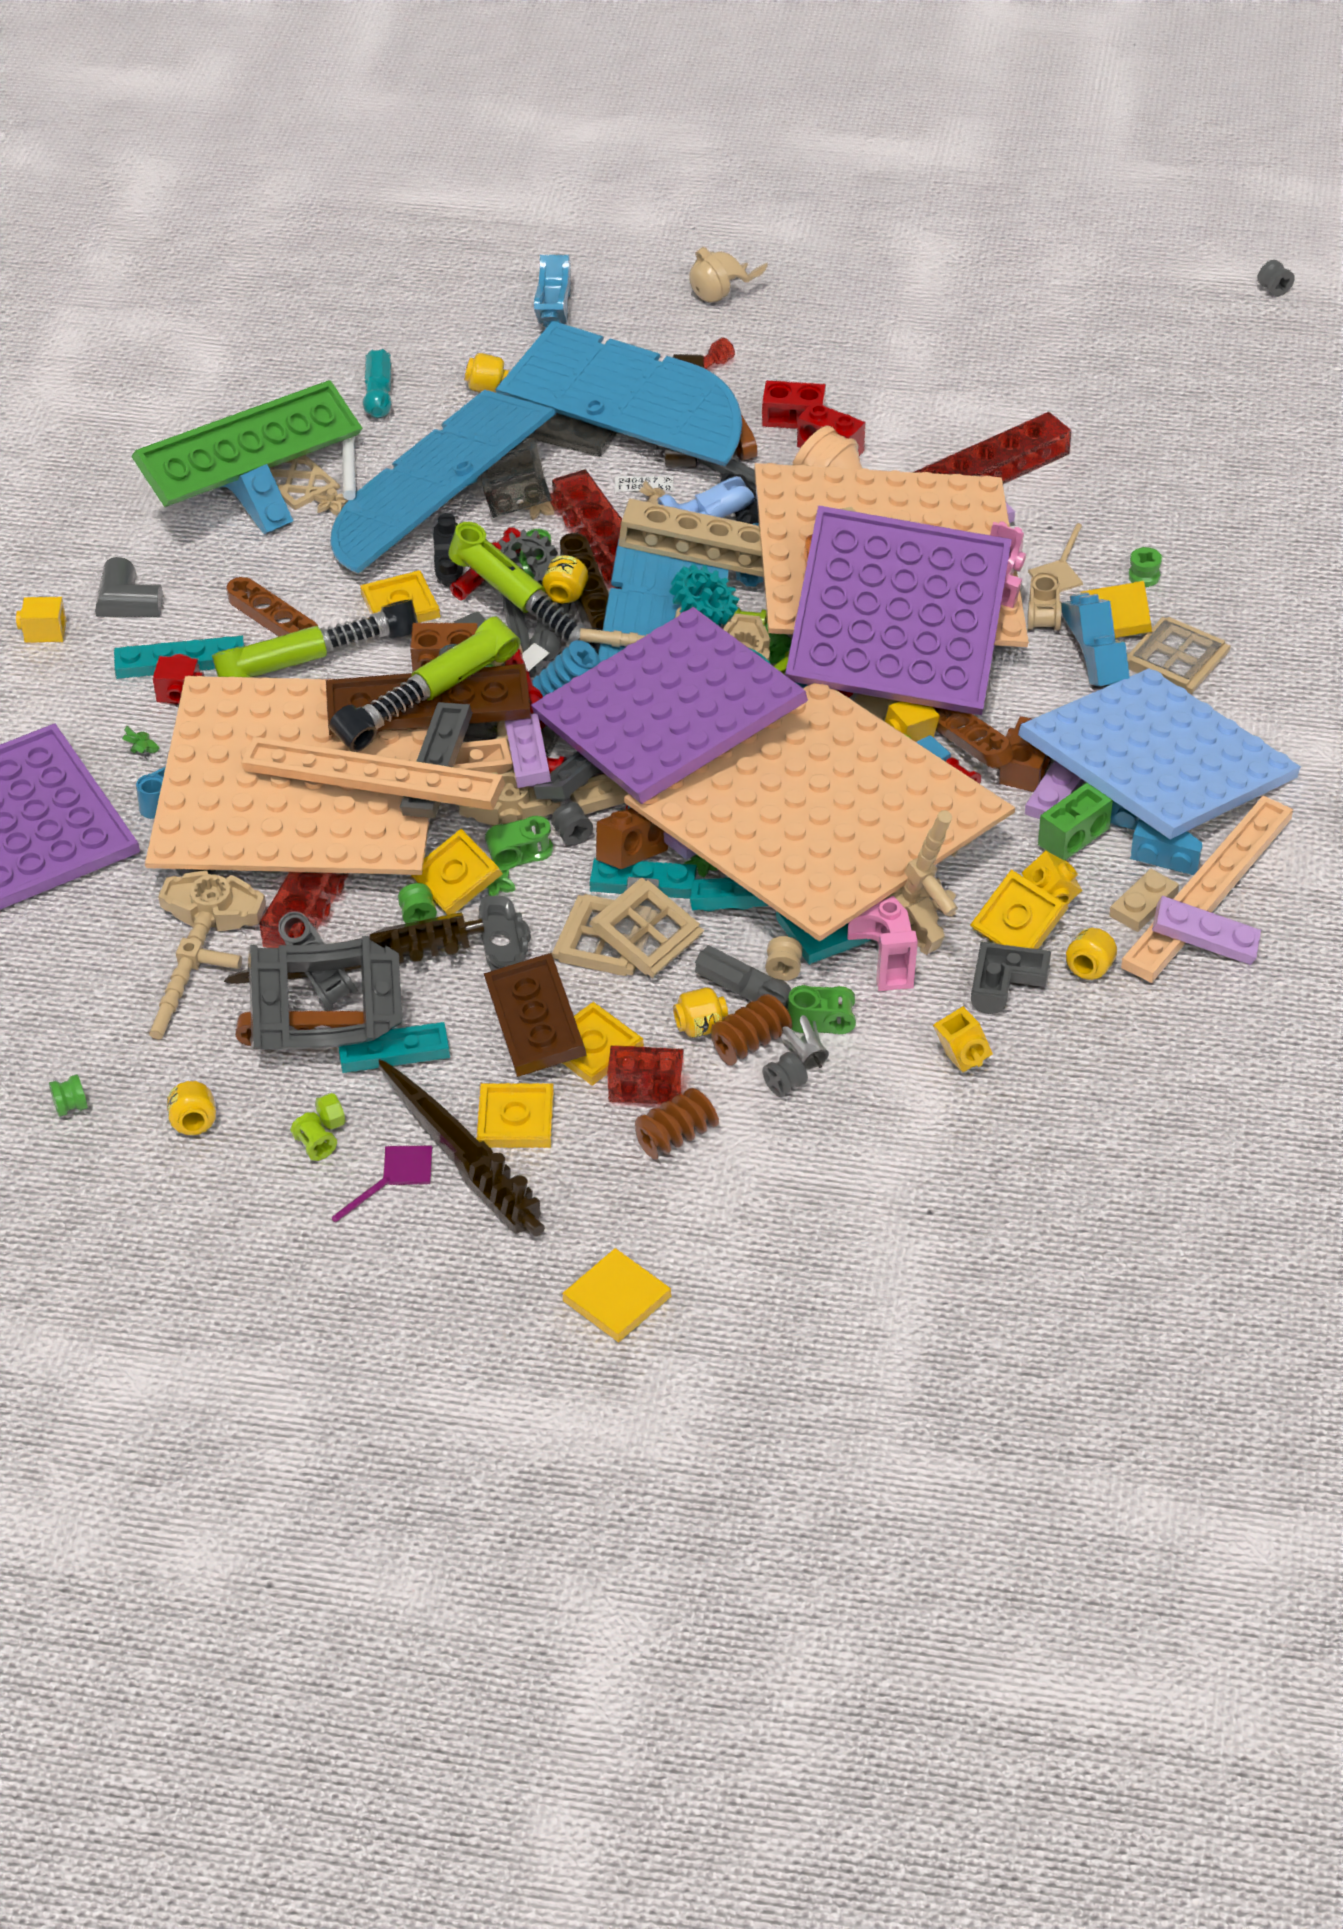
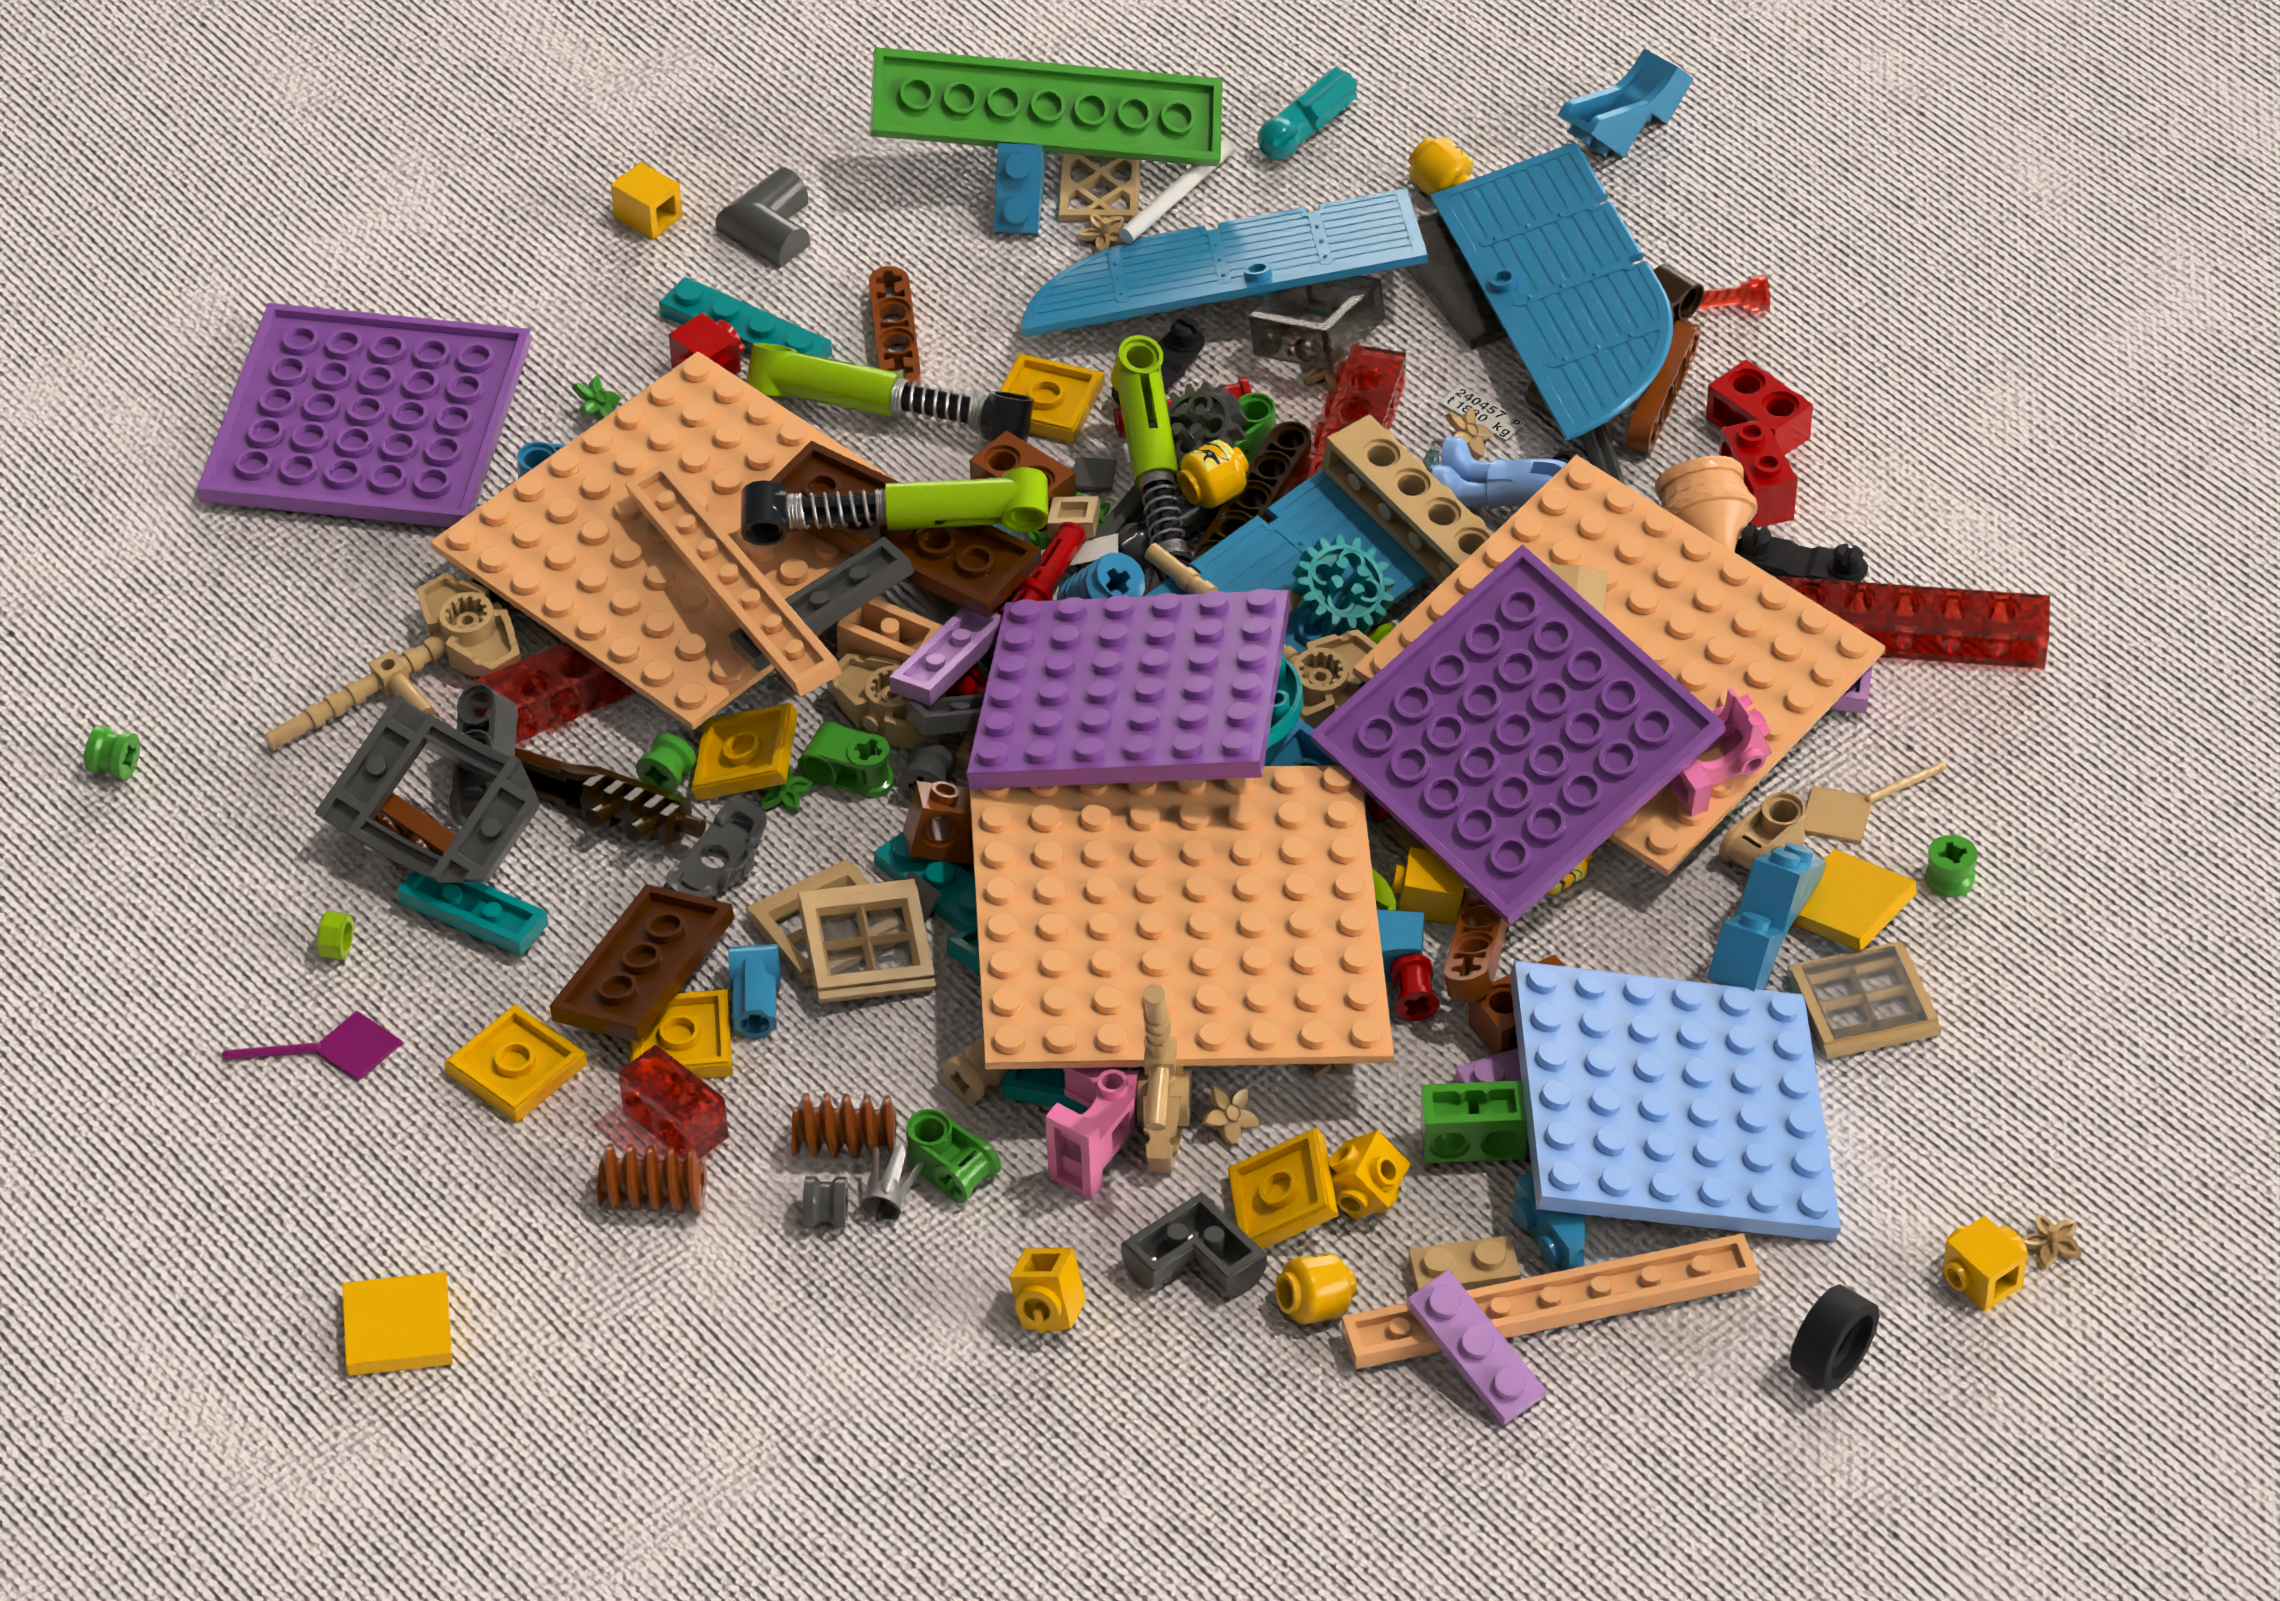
camera: 40 degrees right, 0 degrees up
(191, 1108) = (207, 842): yellow head -> none
(313, 1136) = (289, 957): lime bush -> none
(475, 1160) = (410, 1076): dark brown piece -> none
(603, 983) = (754, 981): none -> dark azure piece
(699, 1011) = (815, 1070): yellow head -> none
(714, 271) = (1849, 181): tan hair -> none
(739, 976) = (903, 1060): dark grey piece -> none
(906, 461) = (1789, 559): none -> black piece

